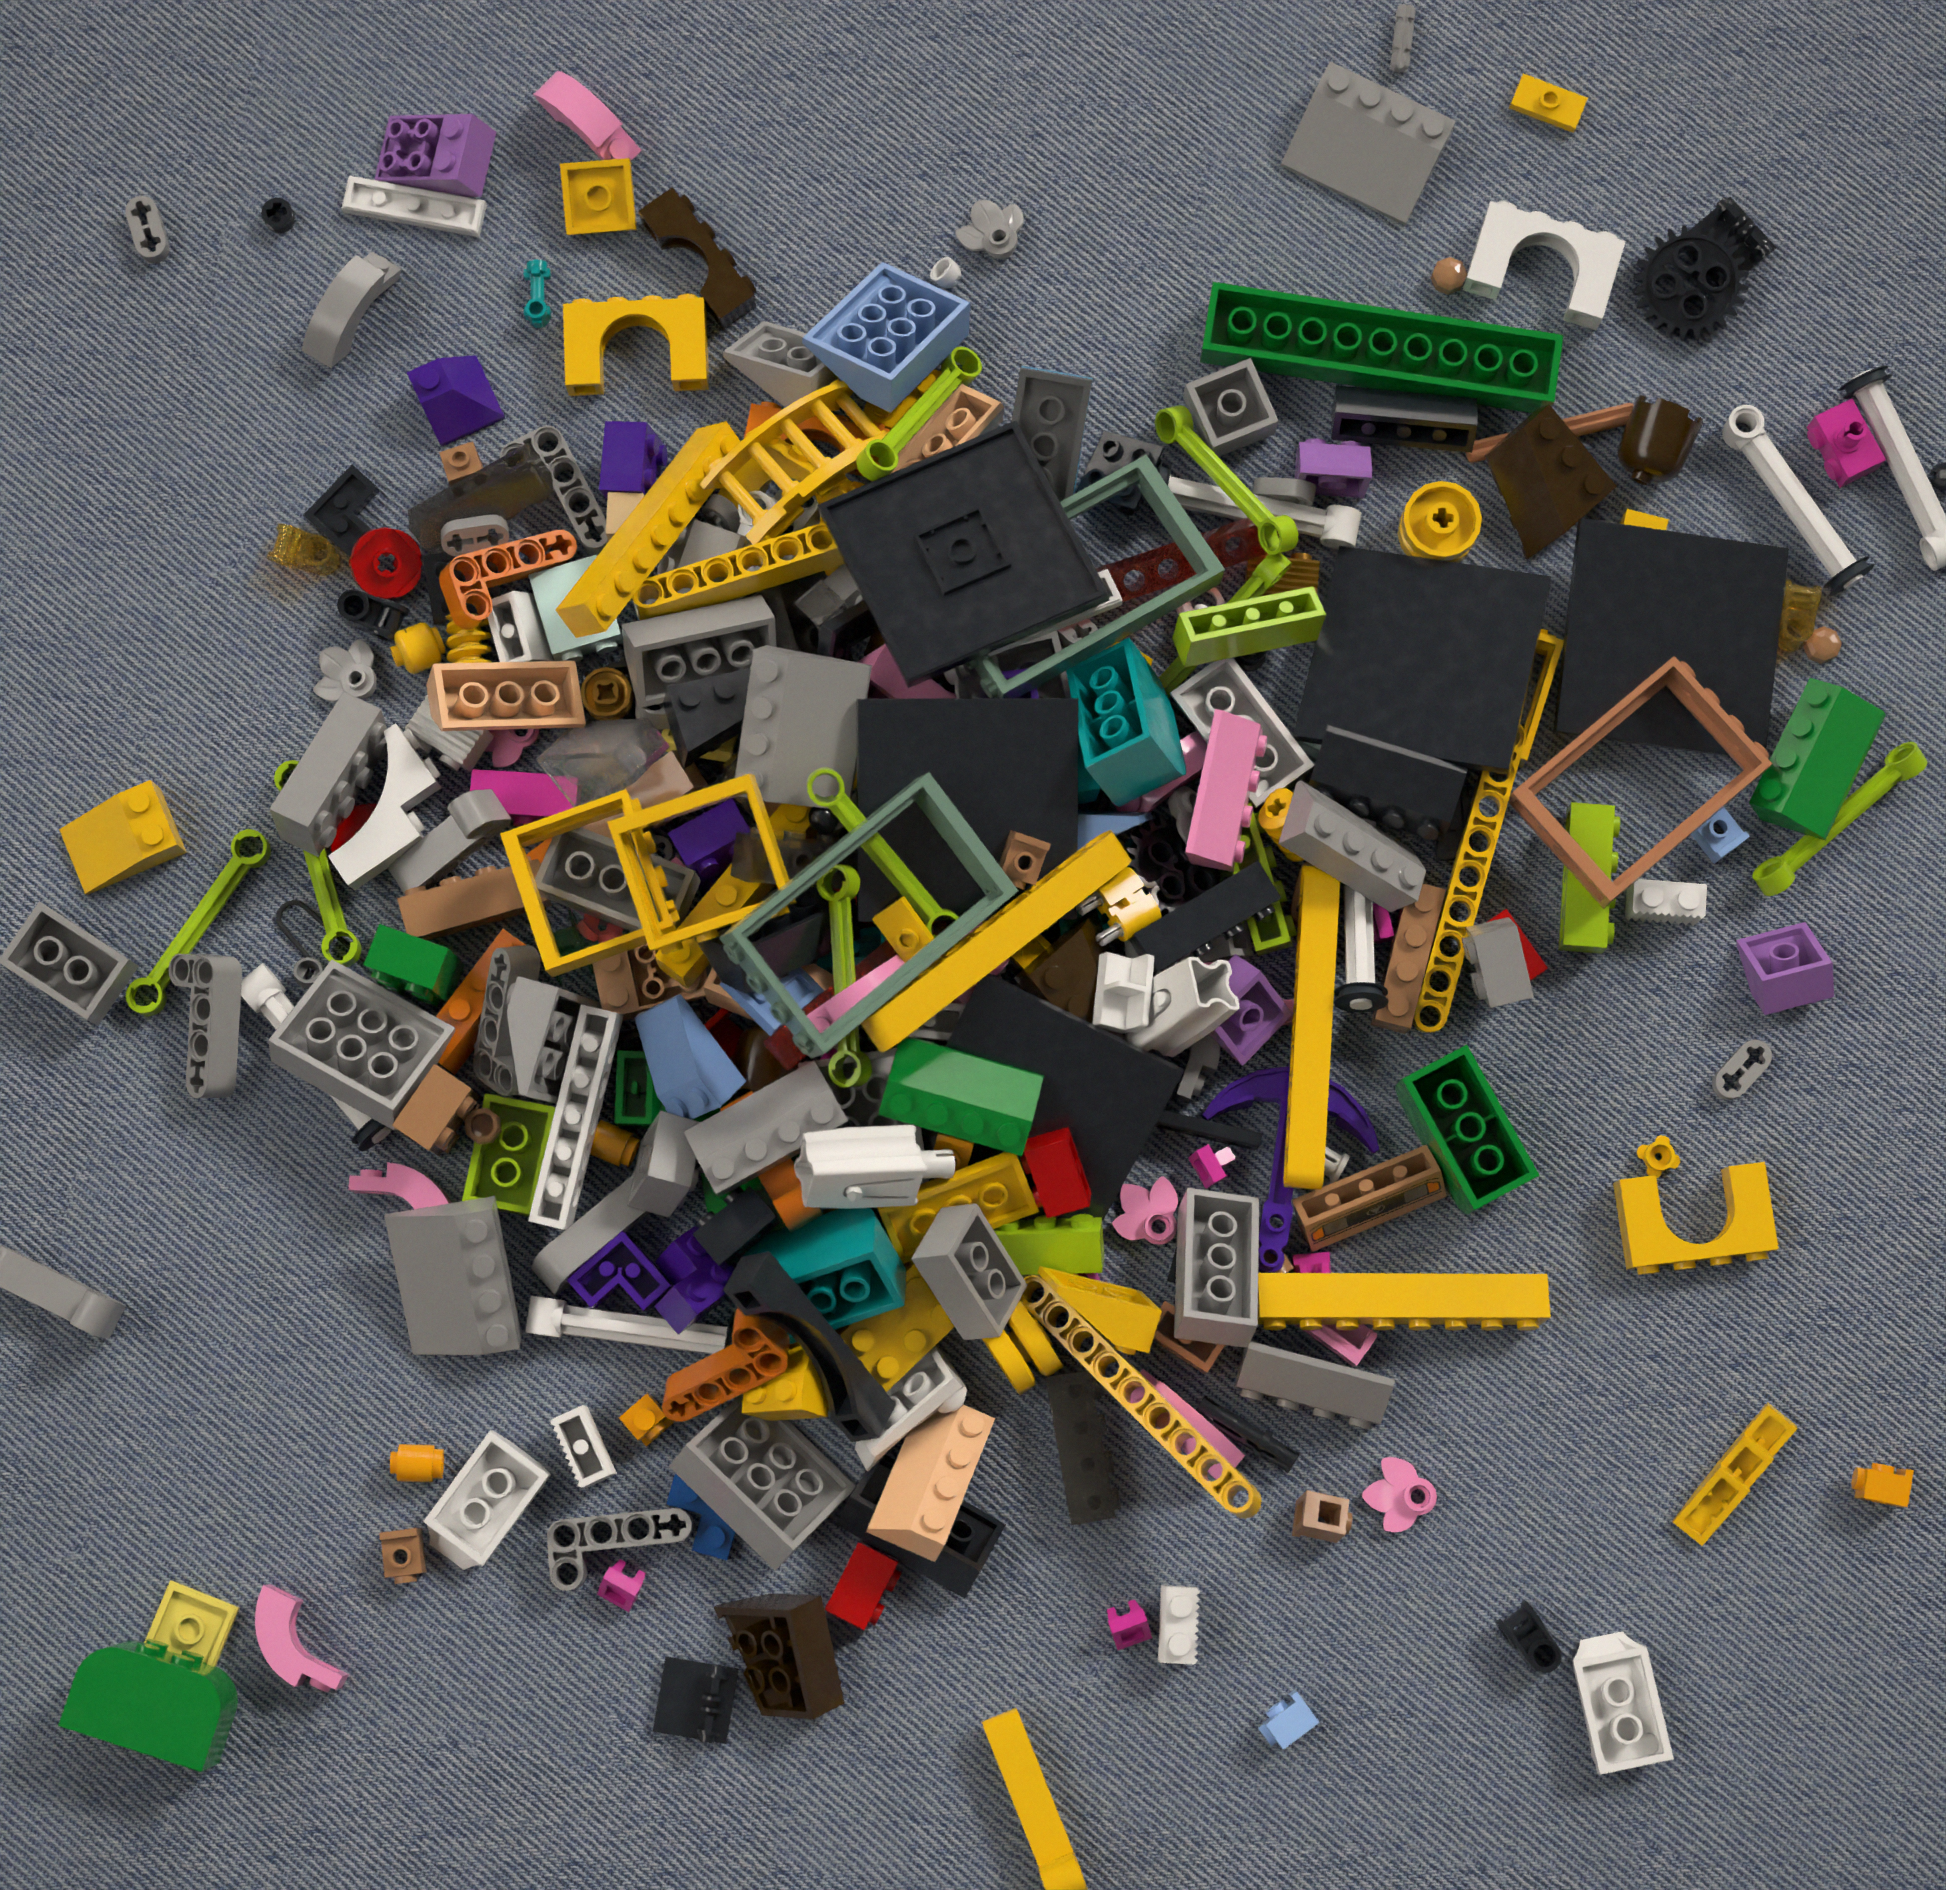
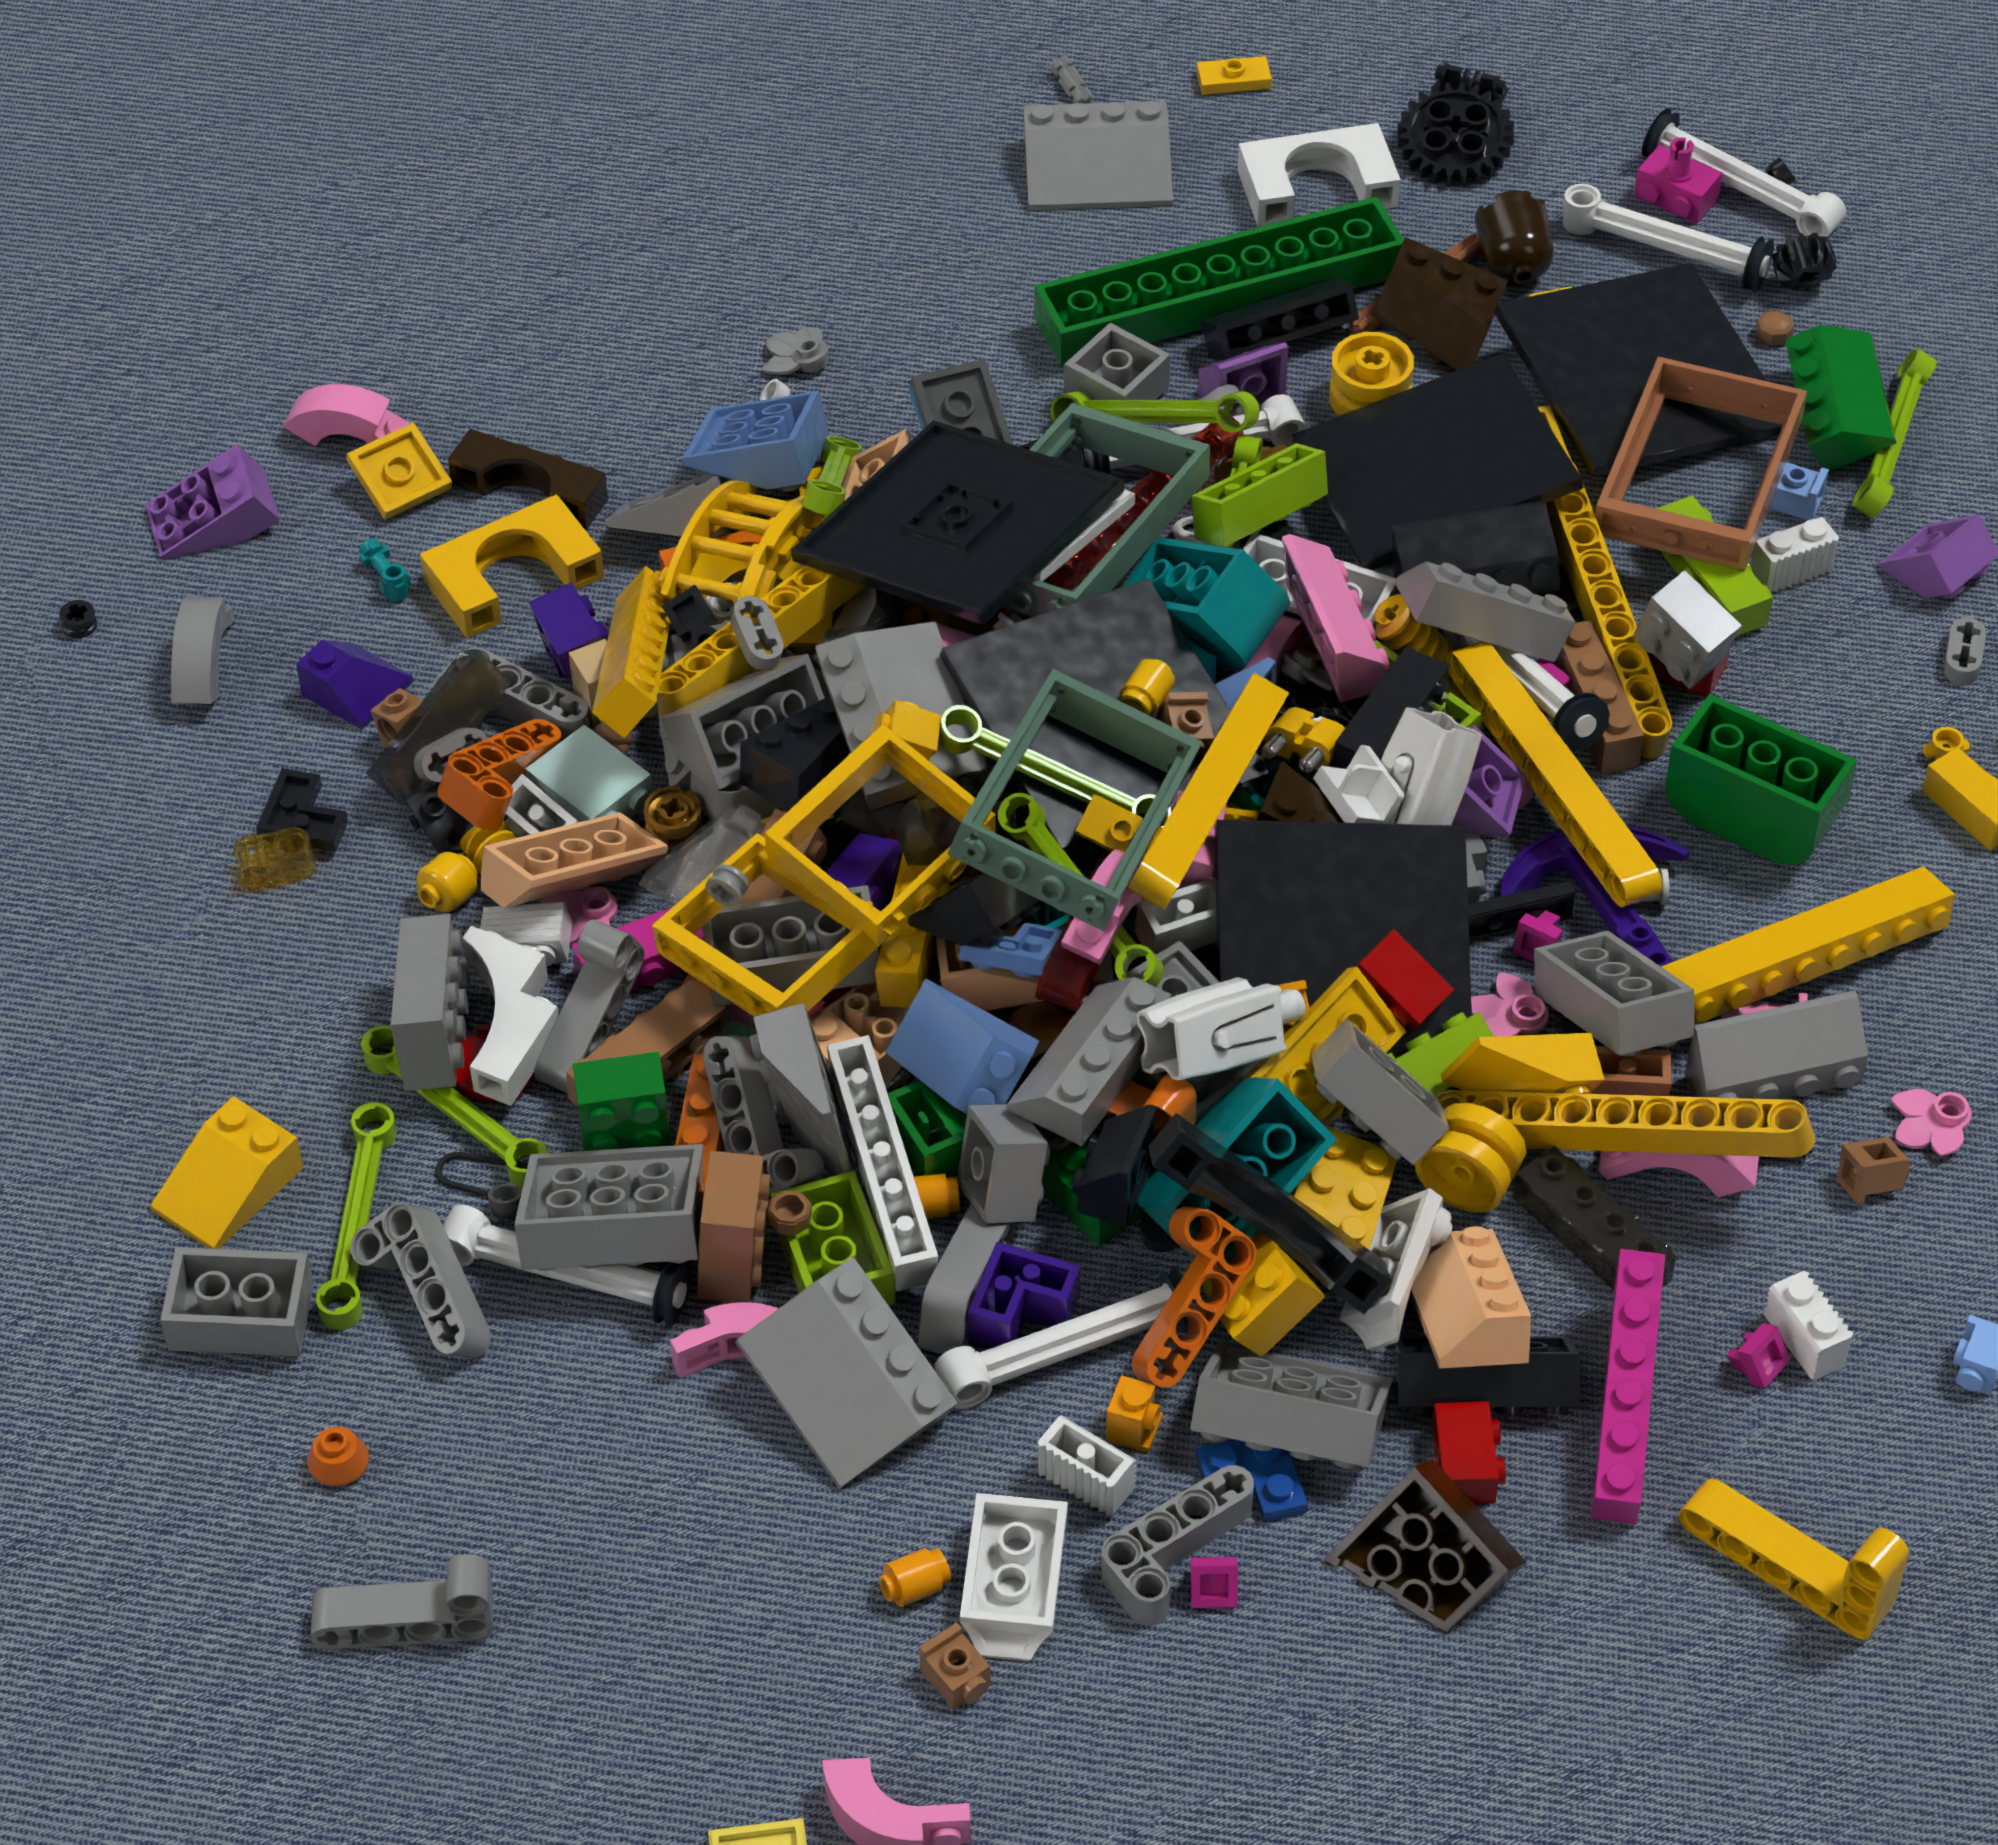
camera: 30 degrees left, 30 degrees down
(88, 1132) = (337, 1457): none -> orange cone
(343, 669) = (375, 940): light grey plate -> none
(365, 563) = (365, 847): red plate -> none
(379, 618) = (377, 880): black piece -> none
(414, 206) = (214, 559): white tile -> none
(569, 835) = (727, 885): none -> light grey bush
(695, 1700) = (1367, 1649): black hinge -> none
(696, 1282) = (1108, 1256): dark purple brick -> none
(712, 518) = (691, 616): none -> black plate
(729, 583) = (764, 630): none -> light grey beam
(781, 768) = (913, 725): none -> yellow brick
(961, 1095) = (1266, 943): green slope -> none
(1004, 1609) = (1628, 1387): none -> dark pink brick
(1008, 811) = (1148, 686): none -> yellow brick
(1369, 1198) = (1712, 887): medium nougat brick -> none
(1448, 275) = (1239, 217): medium nougat tile -> none
(1800, 611) = (1740, 311): clear yellow piece -> none
(1889, 596) = (1804, 261): none -> black gear

